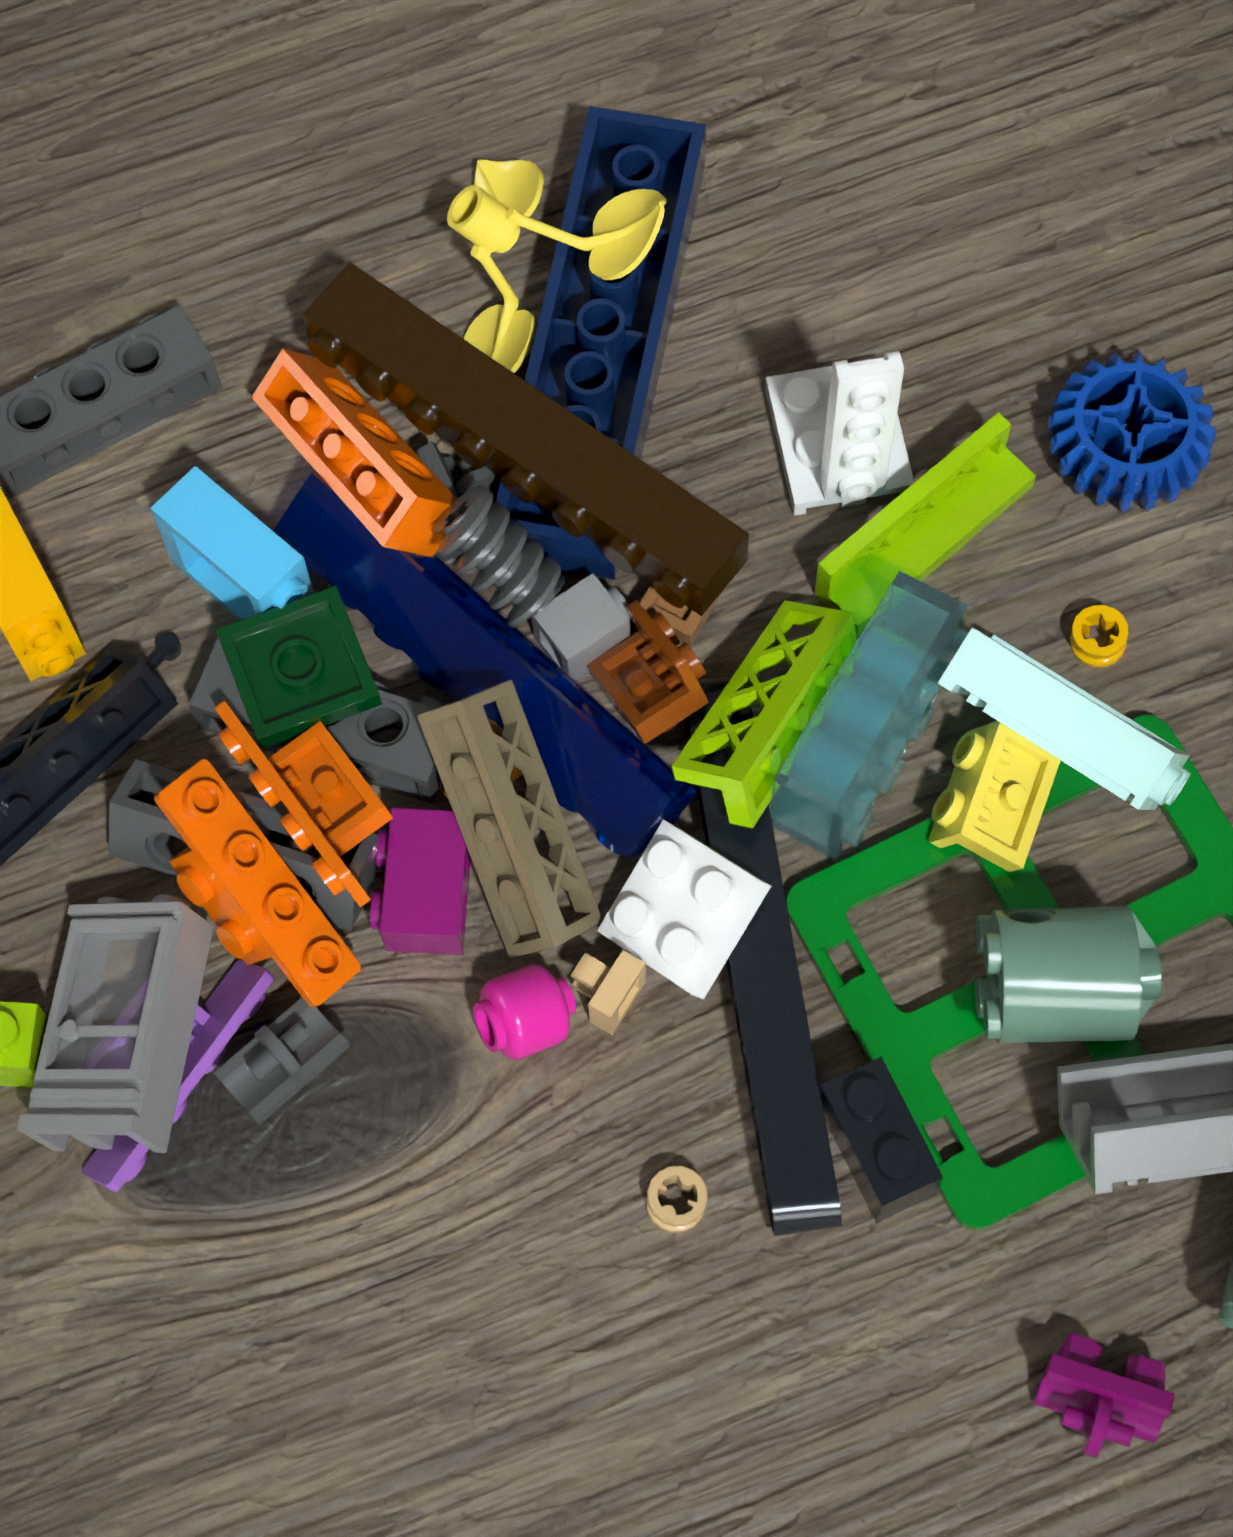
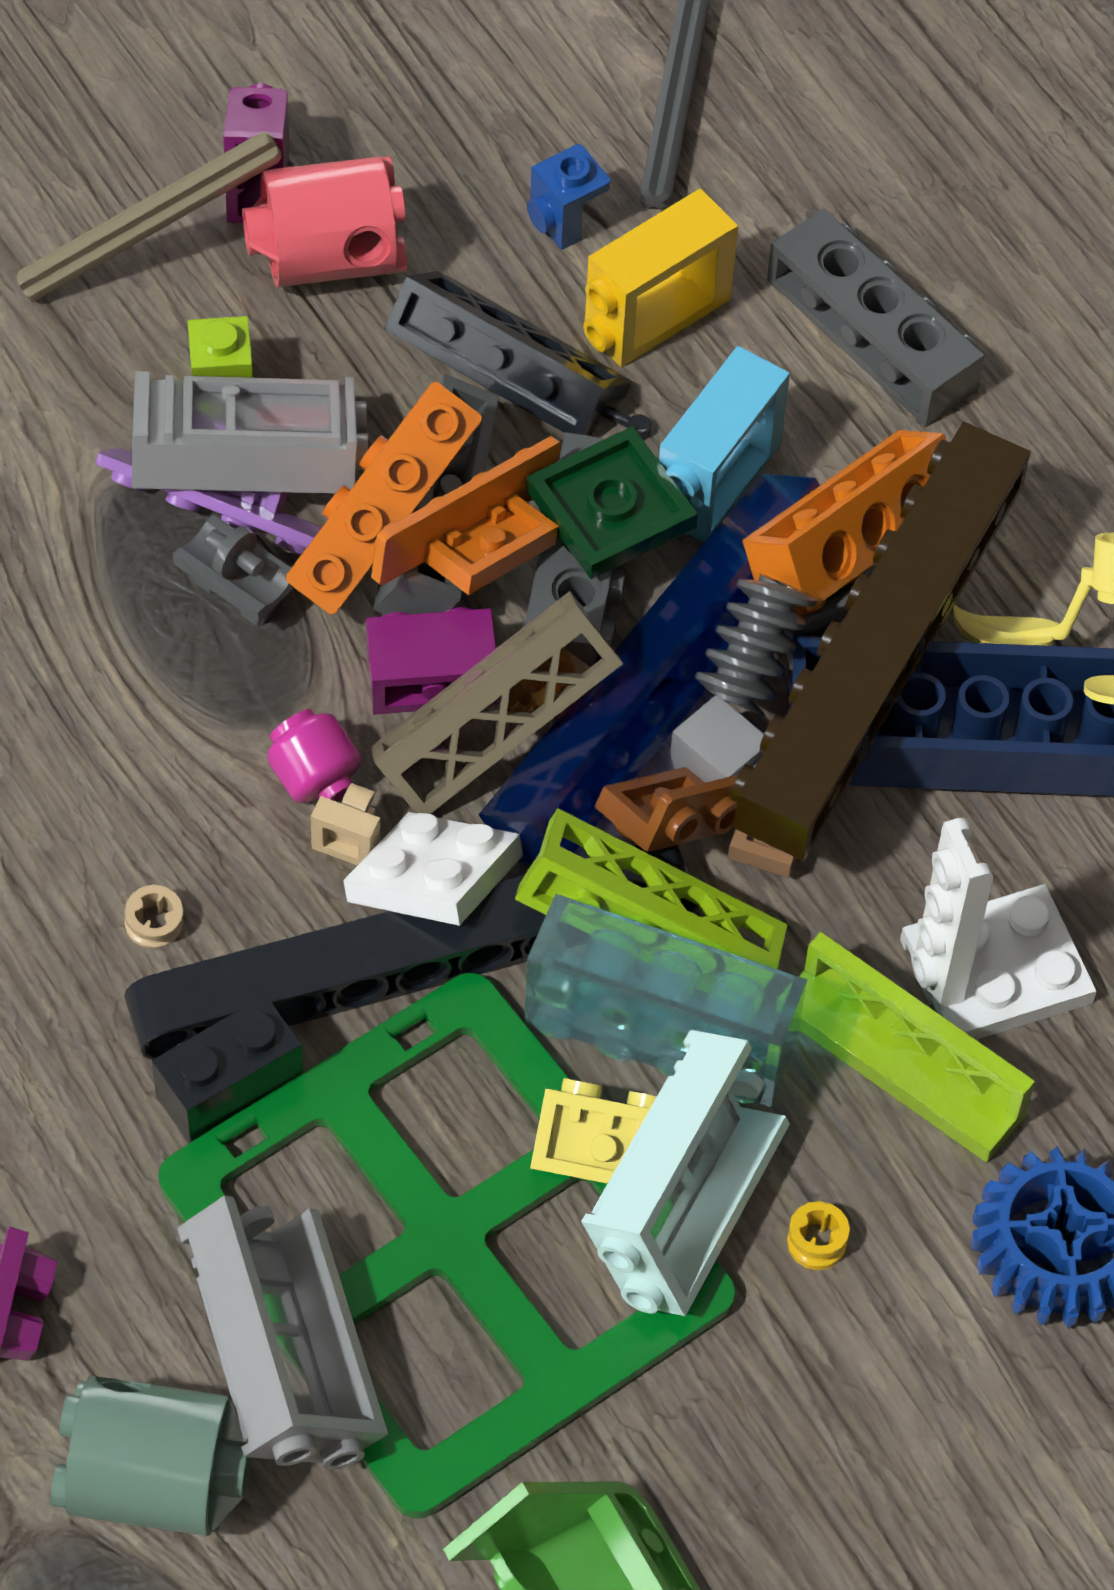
camera: 75 degrees right, 10 degrees down
(1065, 974) = (410, 1194): sand green cylinder -> none

